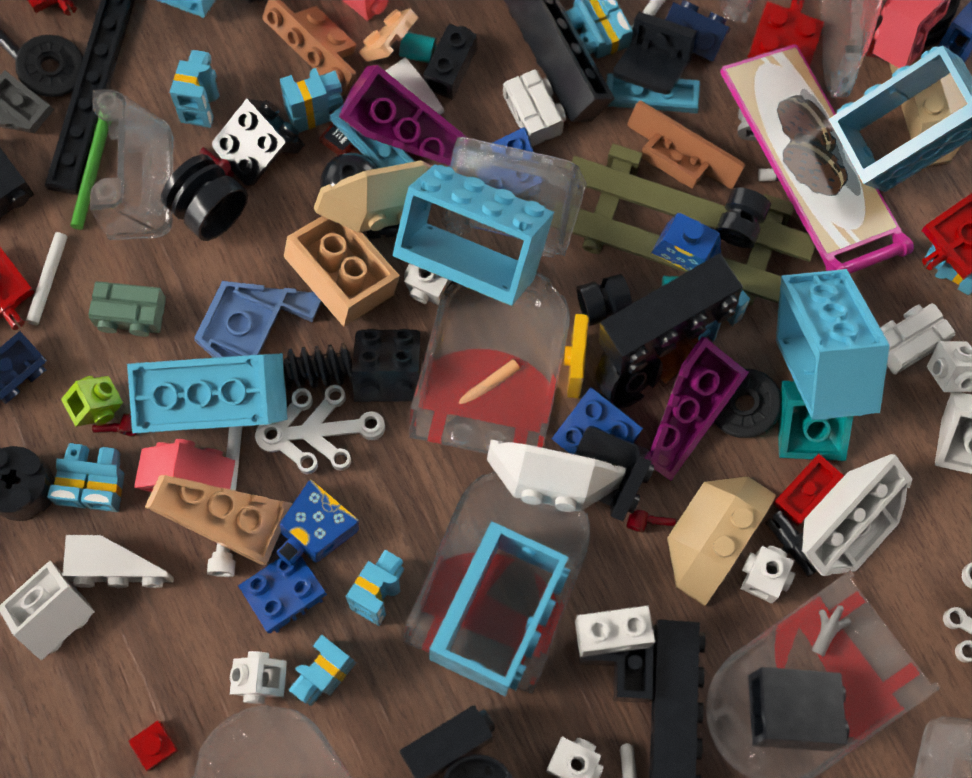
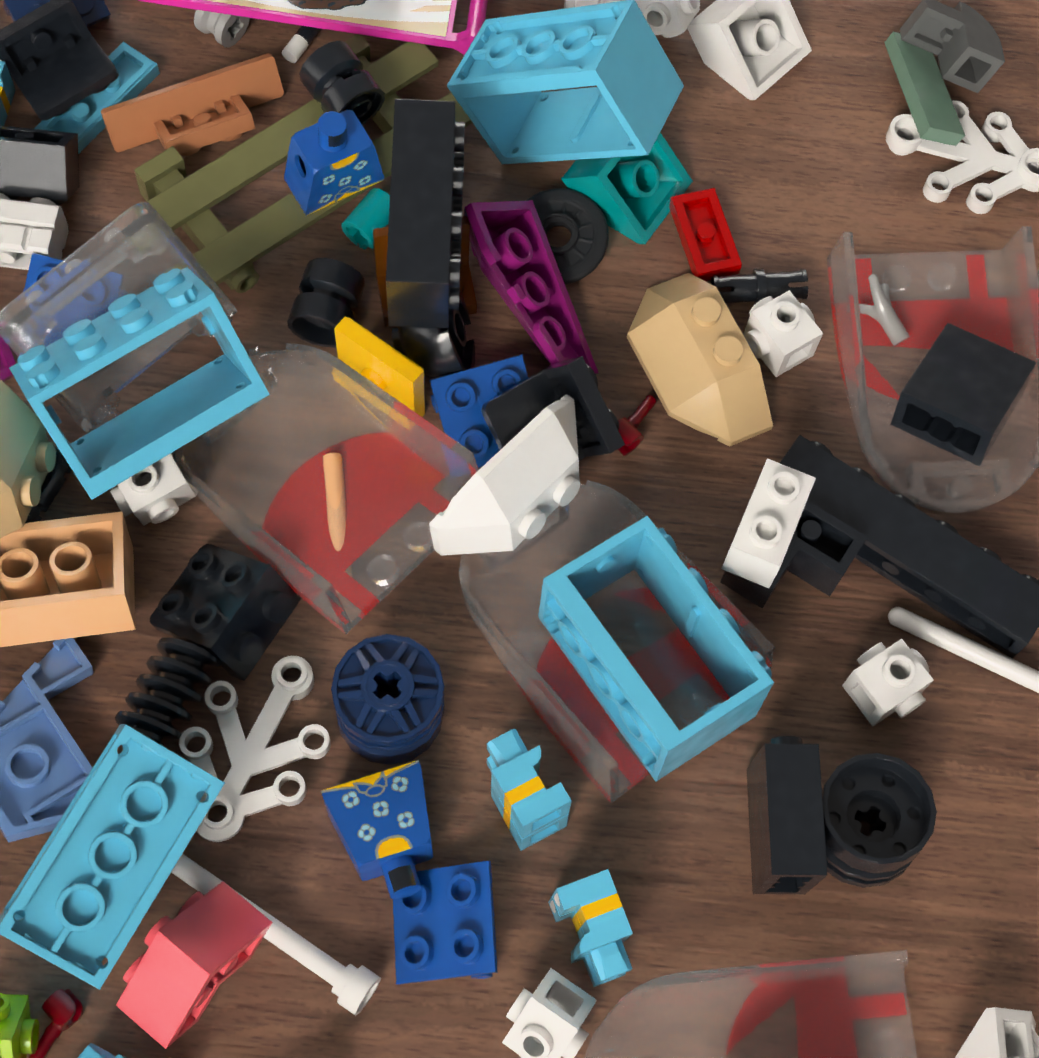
camera: 65 degrees left, 5 degrees down
(228, 517) = (295, 938): light nougat wing -> none
(397, 496) = (388, 728): none -> dark blue wheel
(856, 516) = (766, 200): white wedge -> none

